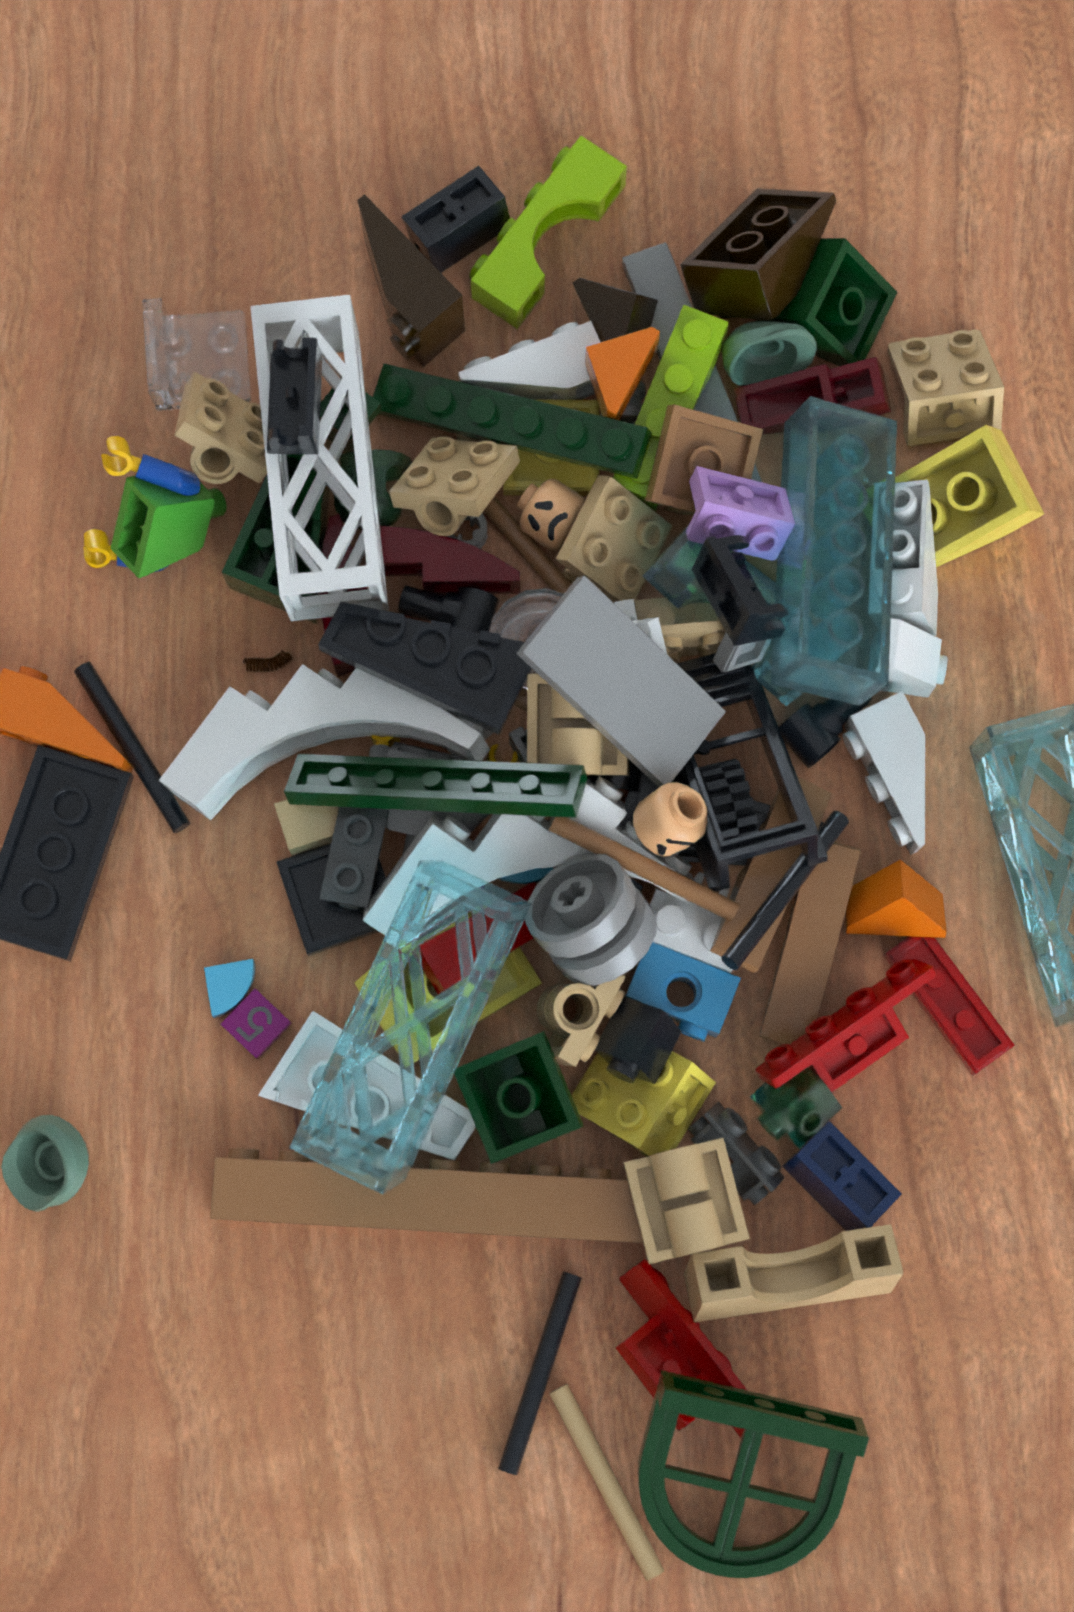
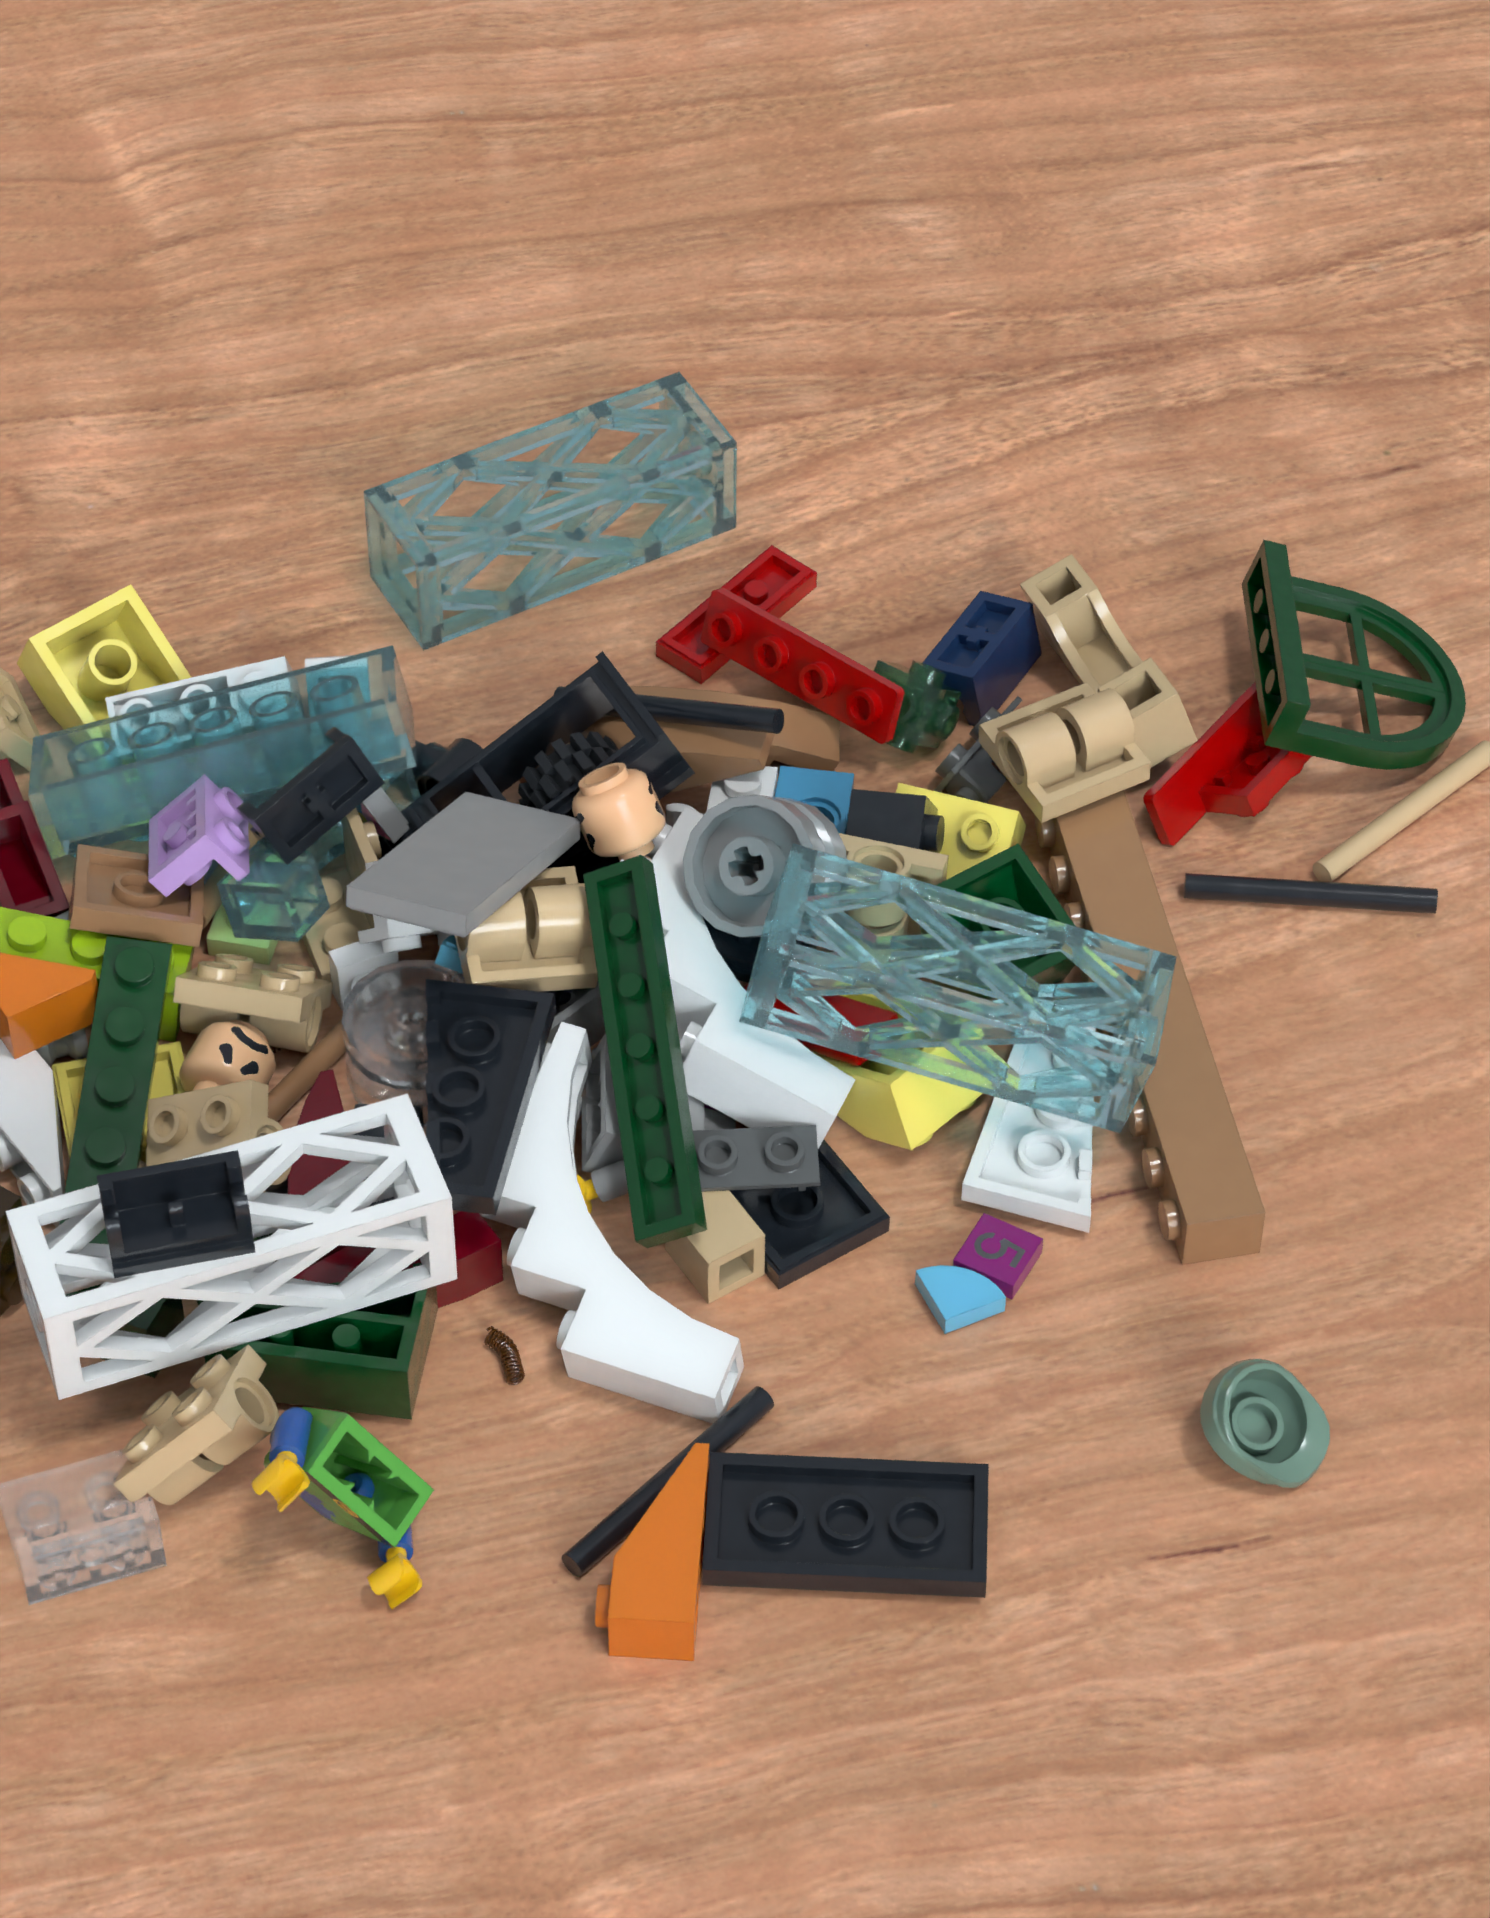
camera: 105 degrees left, 30 degrees down
(645, 867) = (688, 815): medium nougat bar -> none
(894, 755) = (484, 685): white slope -> none
(896, 904) = (646, 653): orange slope -> none

